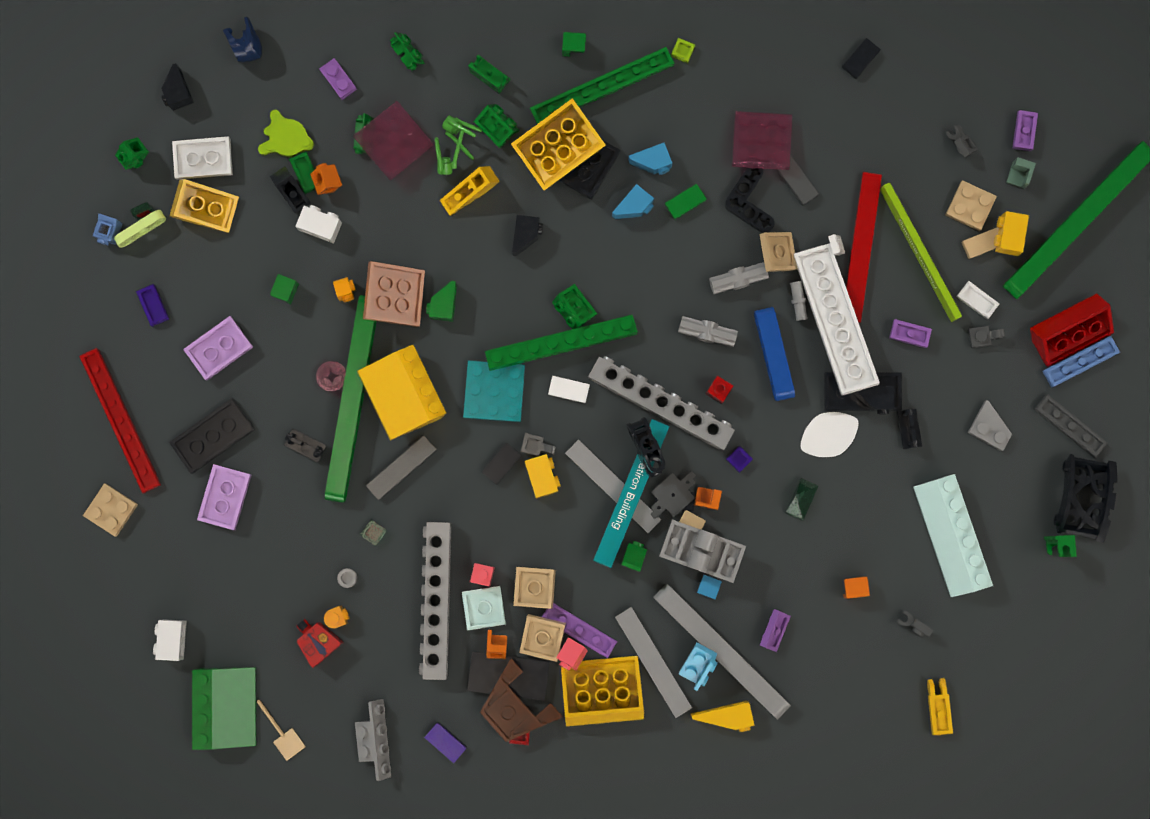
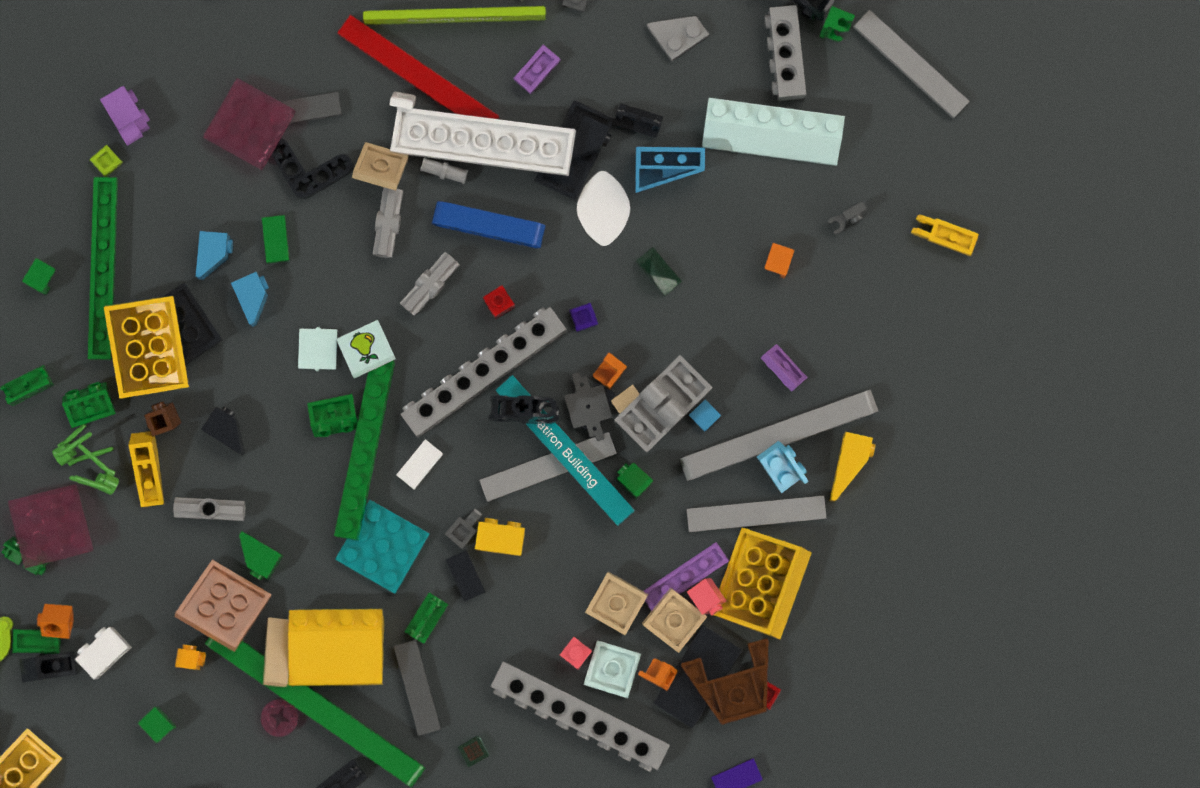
camera: 70 degrees left, 0 degrees up
(376, 350) = (276, 653): none -> tan tile
(456, 449) = (426, 618): none -> green hinge
(457, 239) = (194, 509): none -> light grey piece
(511, 182) = (162, 418): none -> reddish brown brick
(618, 272) = (317, 349): none -> light aqua piece
(635, 307) = (365, 349): none -> light aqua tile
(724, 47) = (125, 114): none -> medium lavender hinge
(887, 466) = (666, 164): none -> dark azure wedge
(1045, 505) = (786, 17): none -> light grey brick
(1058, 618) = (911, 64): none -> light grey tile

